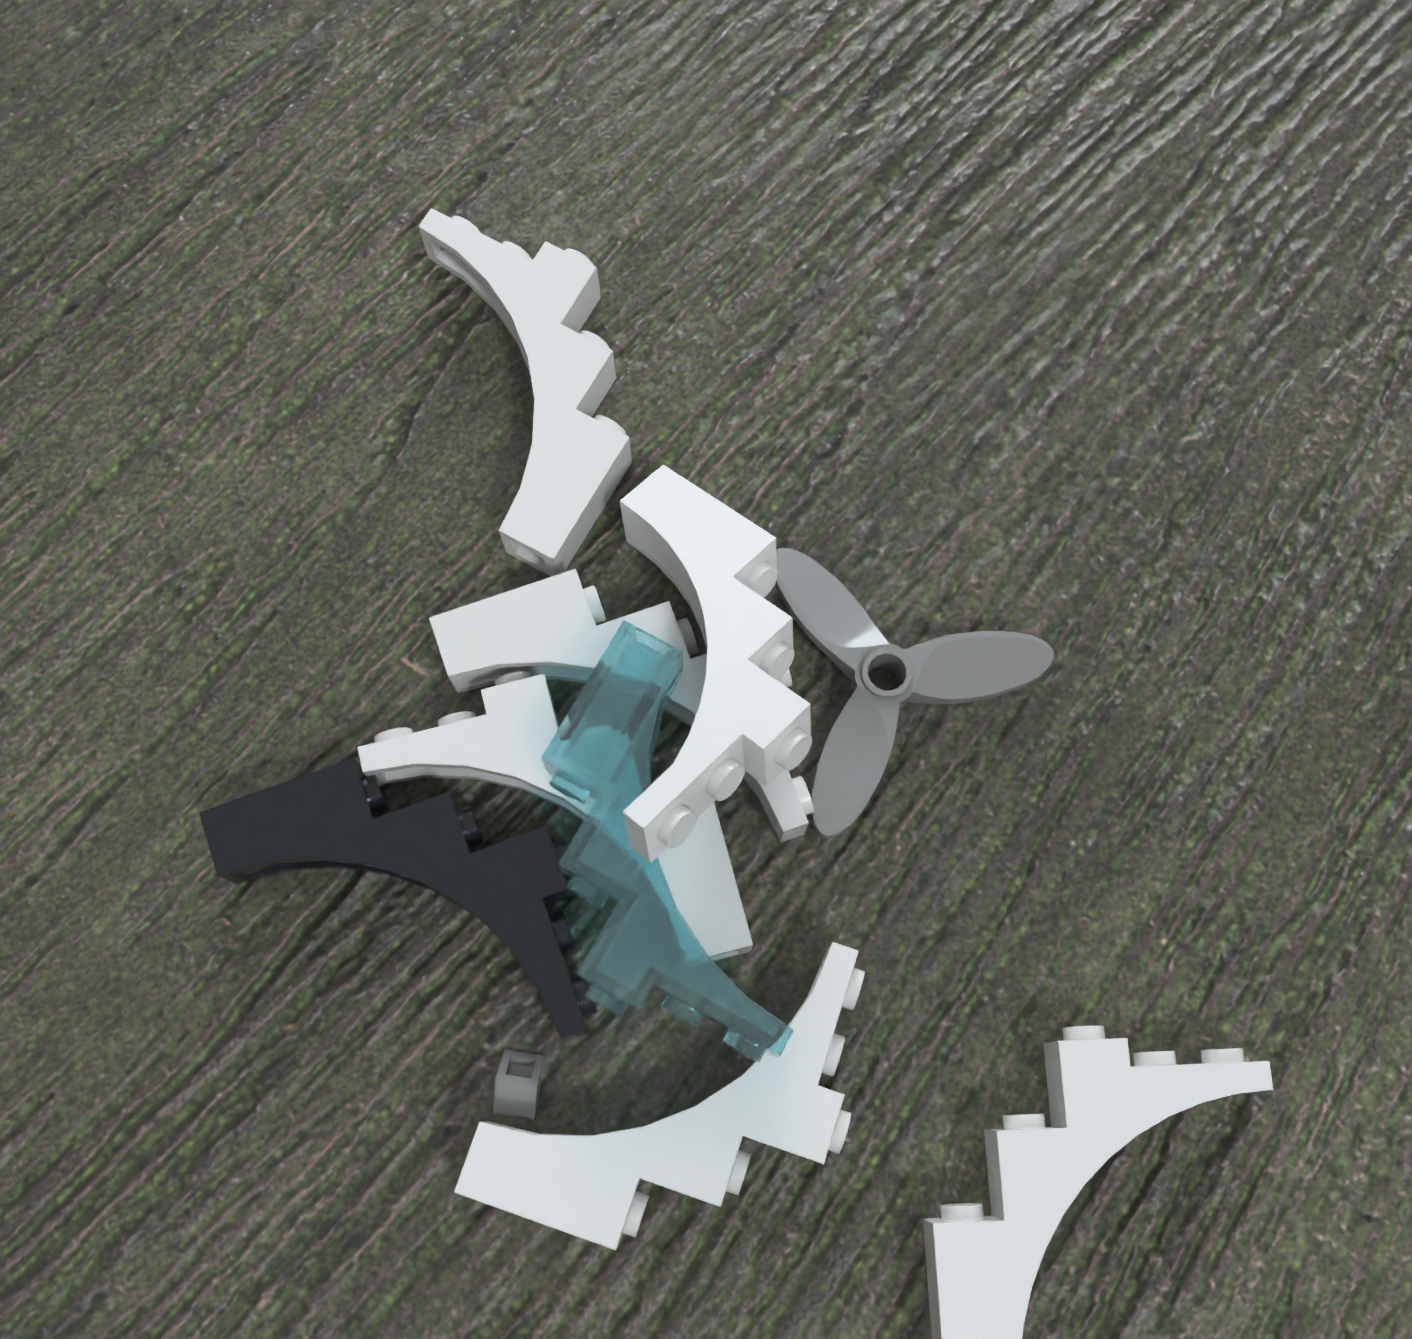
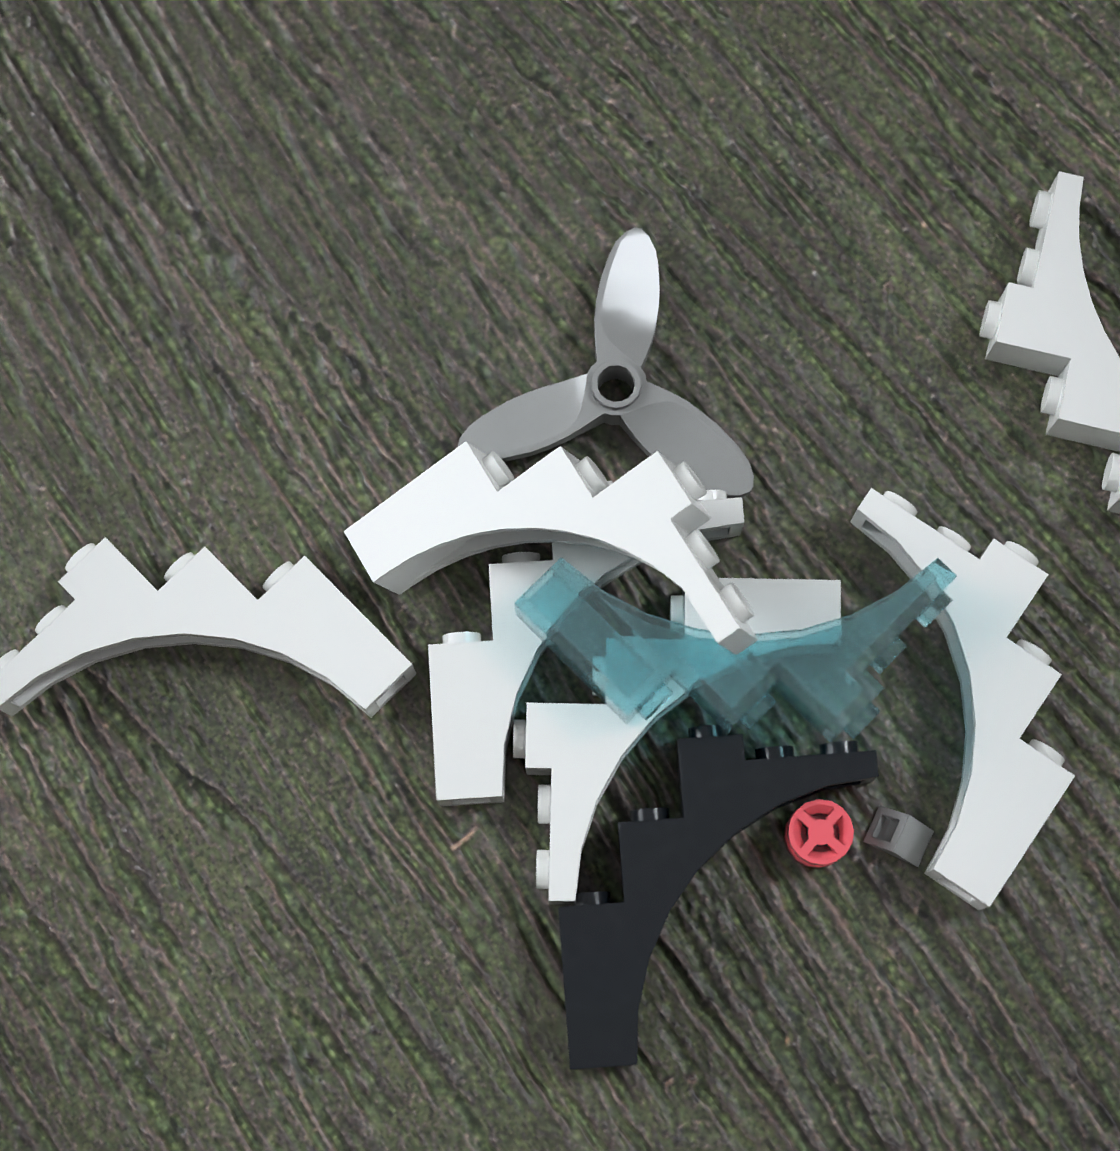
camera: 70 degrees left, 5 degrees up
(485, 992) = (826, 825): none -> coral wheel

